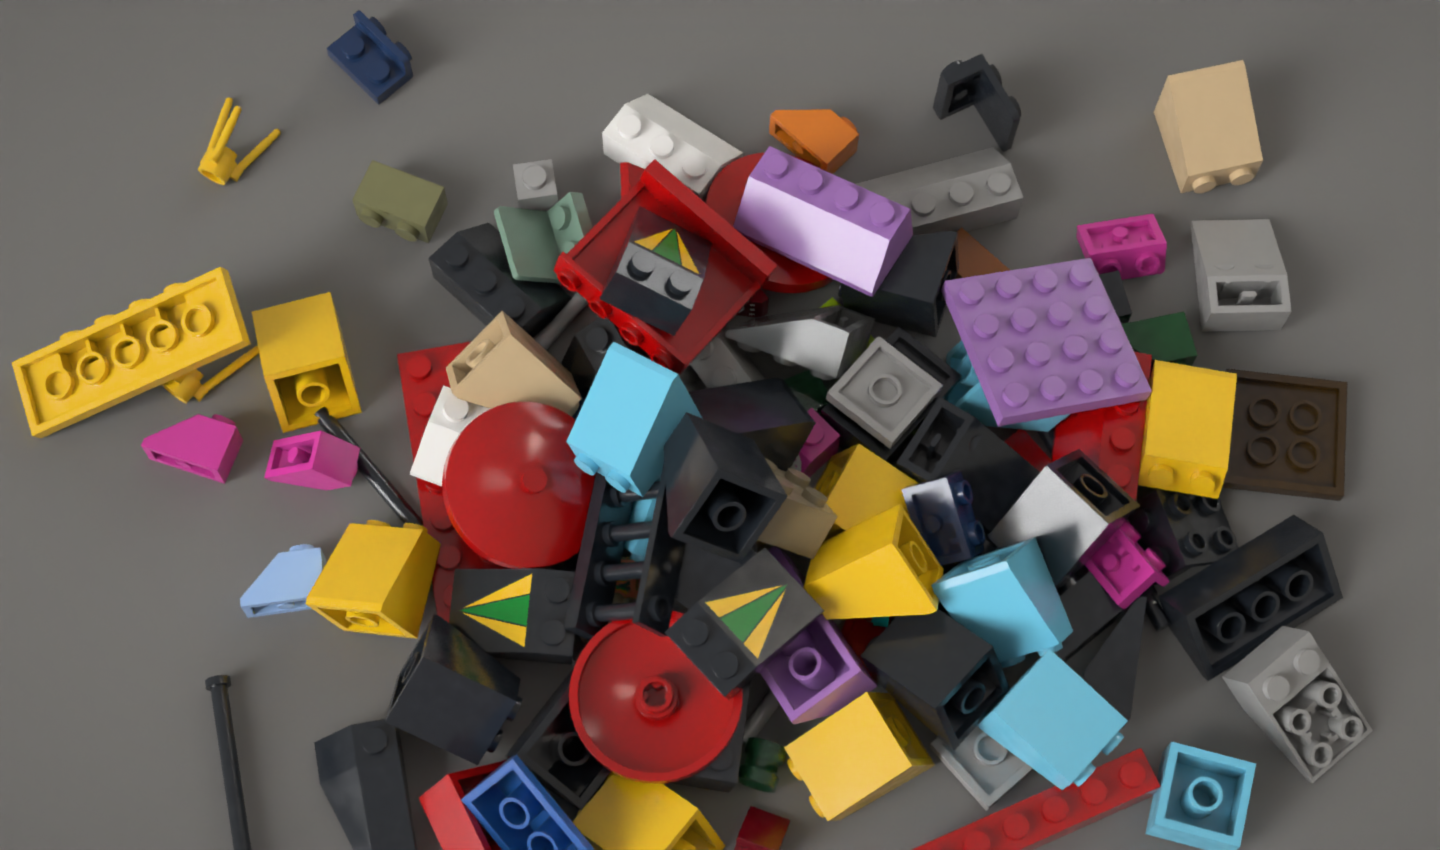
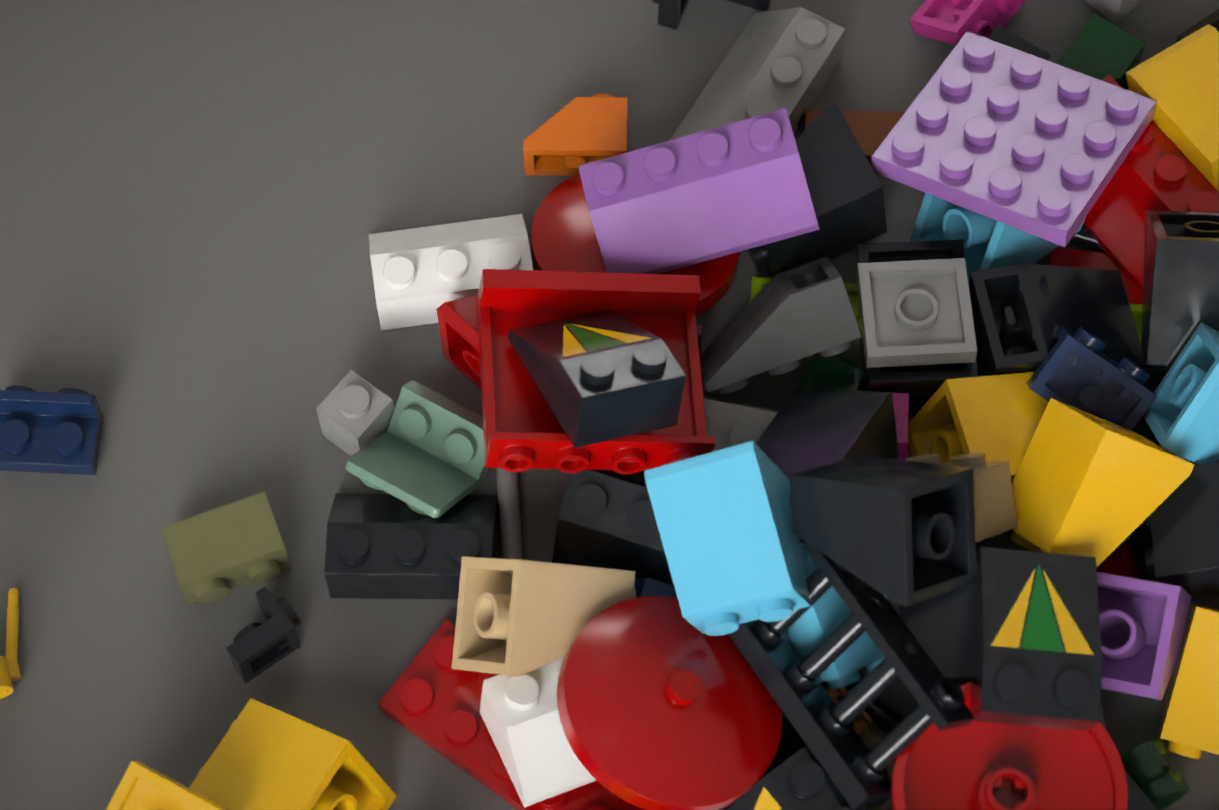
camera: 40 degrees left, 5 degrees down
(370, 271) = (265, 644): none -> black bracket

